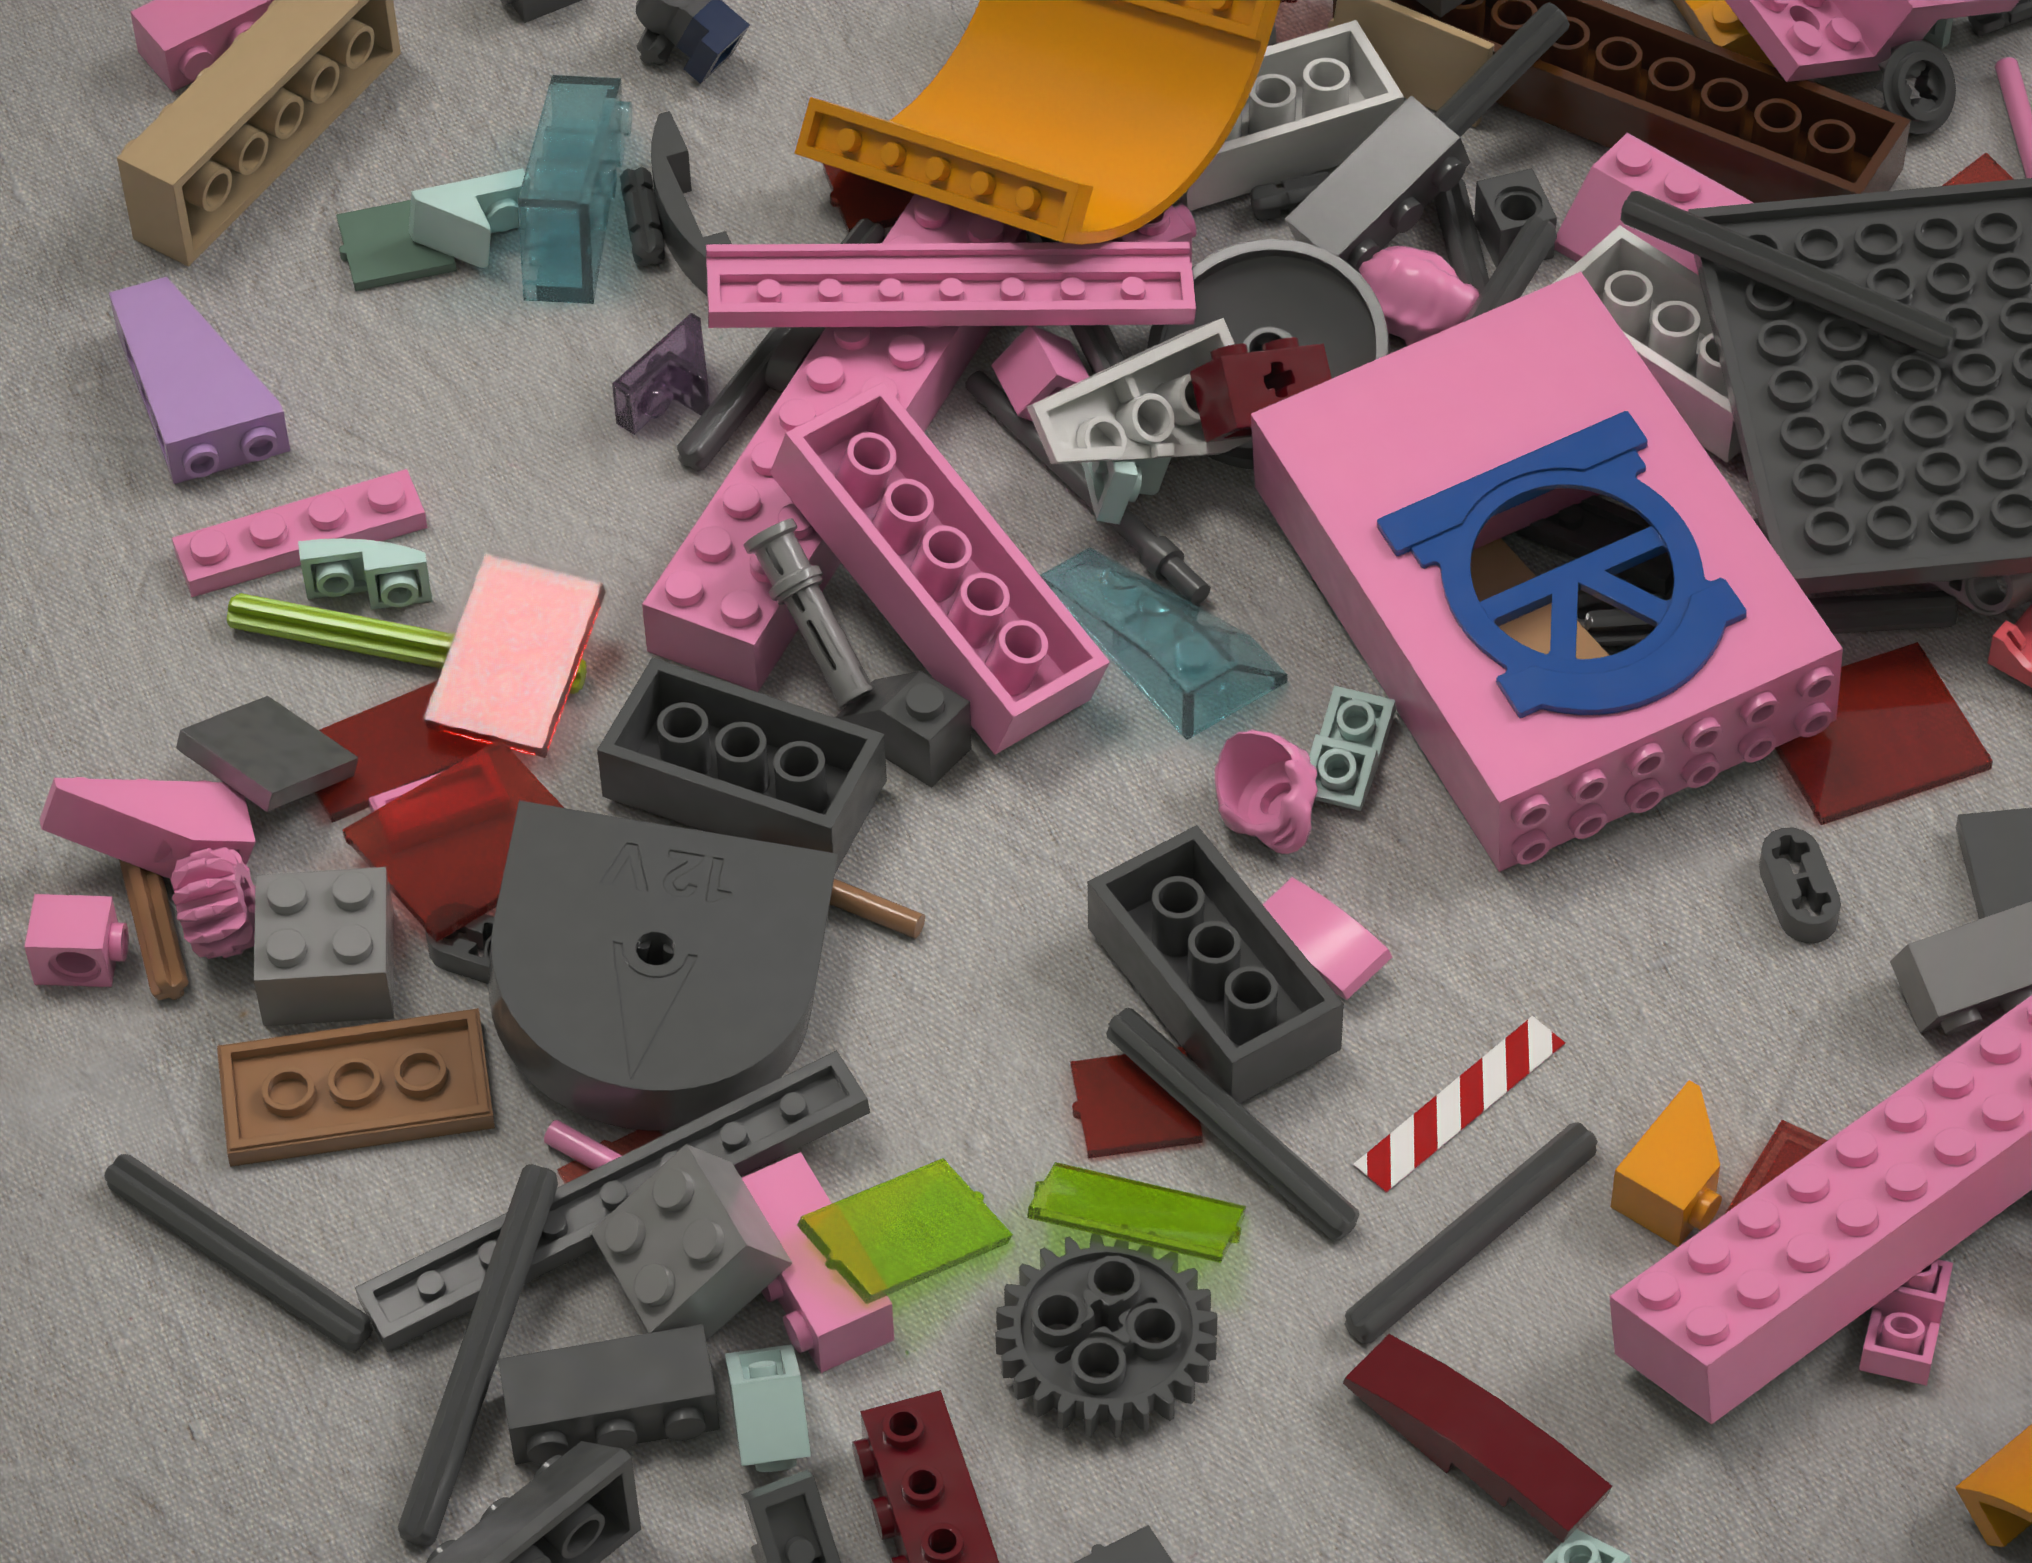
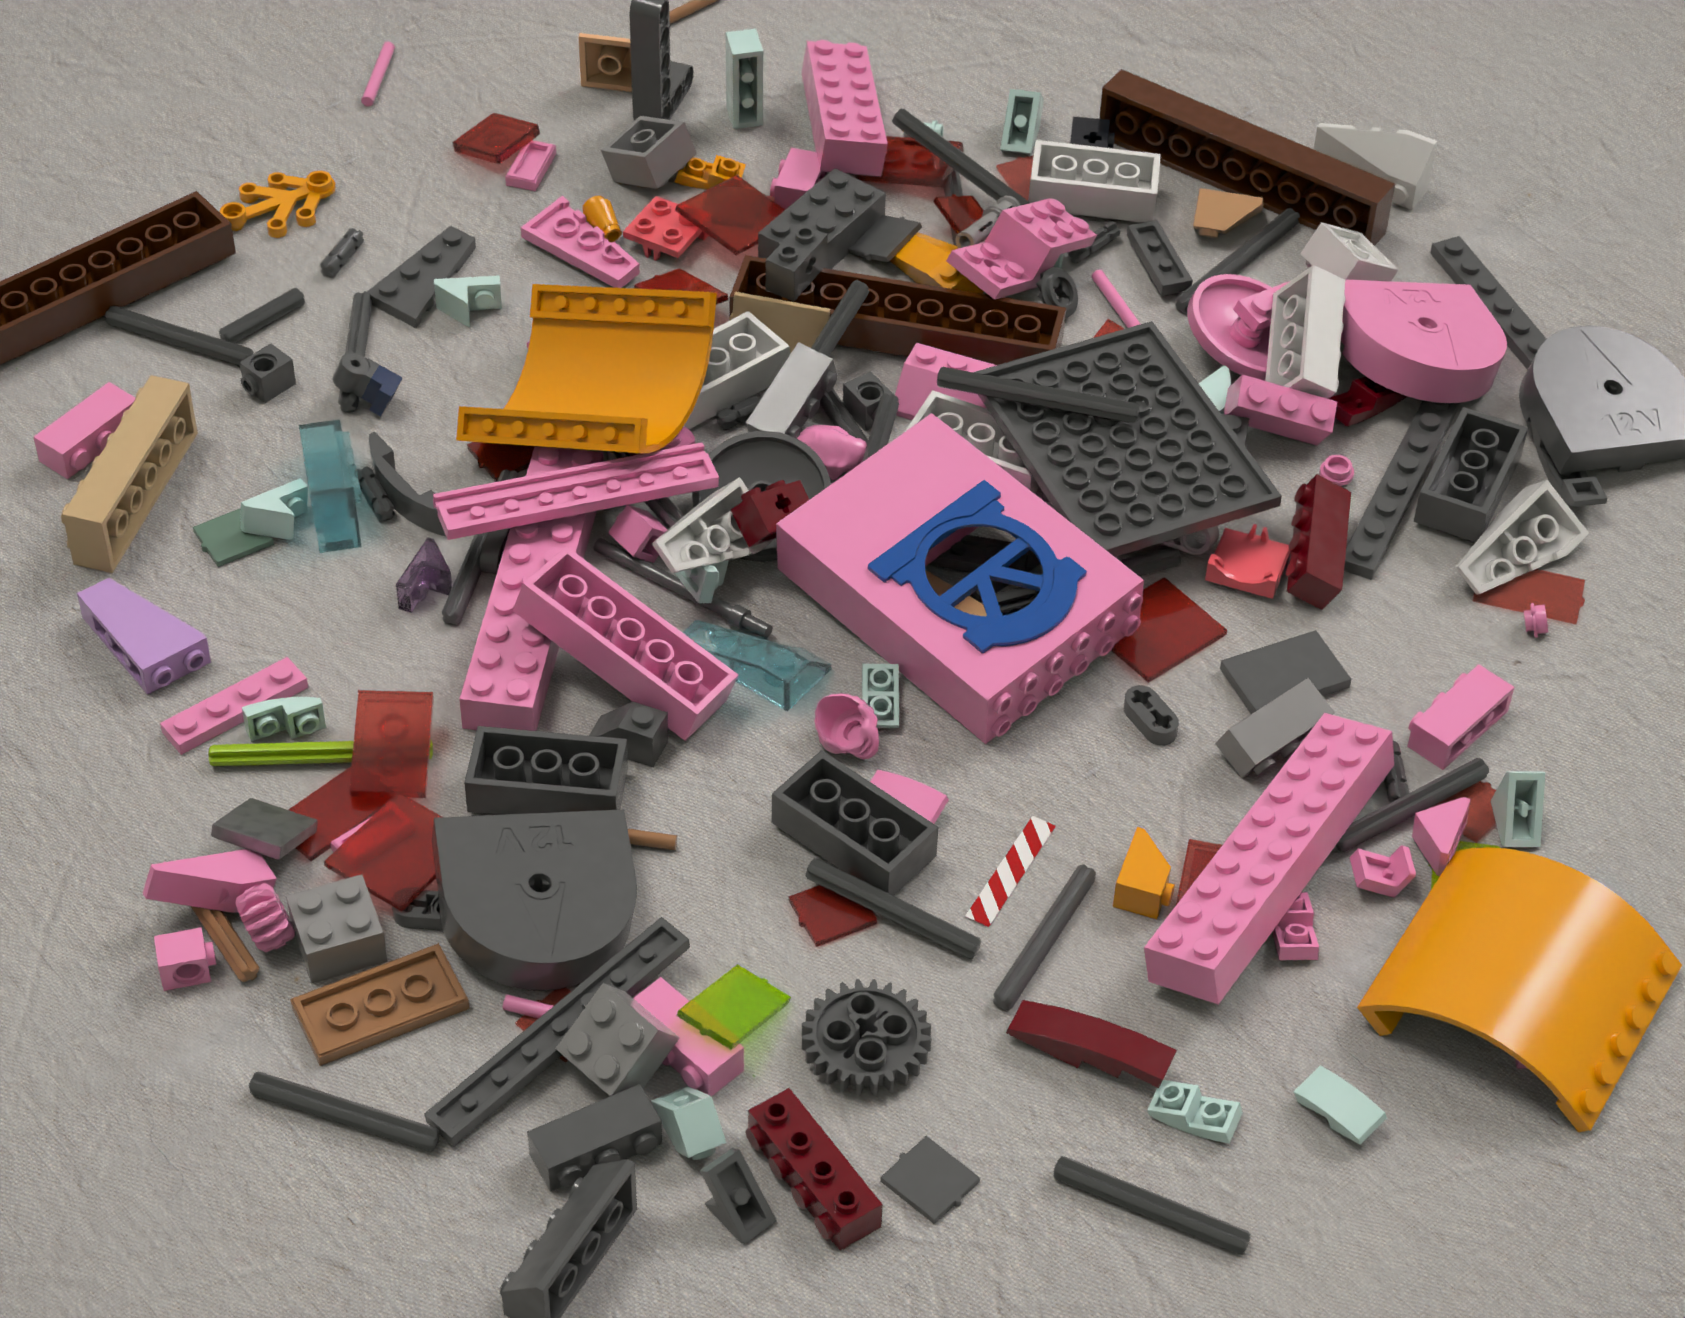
camera: 20 degrees left, 5 degrees down
(477, 1356) = (512, 1134): dark grey axle -> none
(797, 586) = (549, 669): light grey pin -> none
(1137, 1212) = (859, 967): clear neon green piece -> none

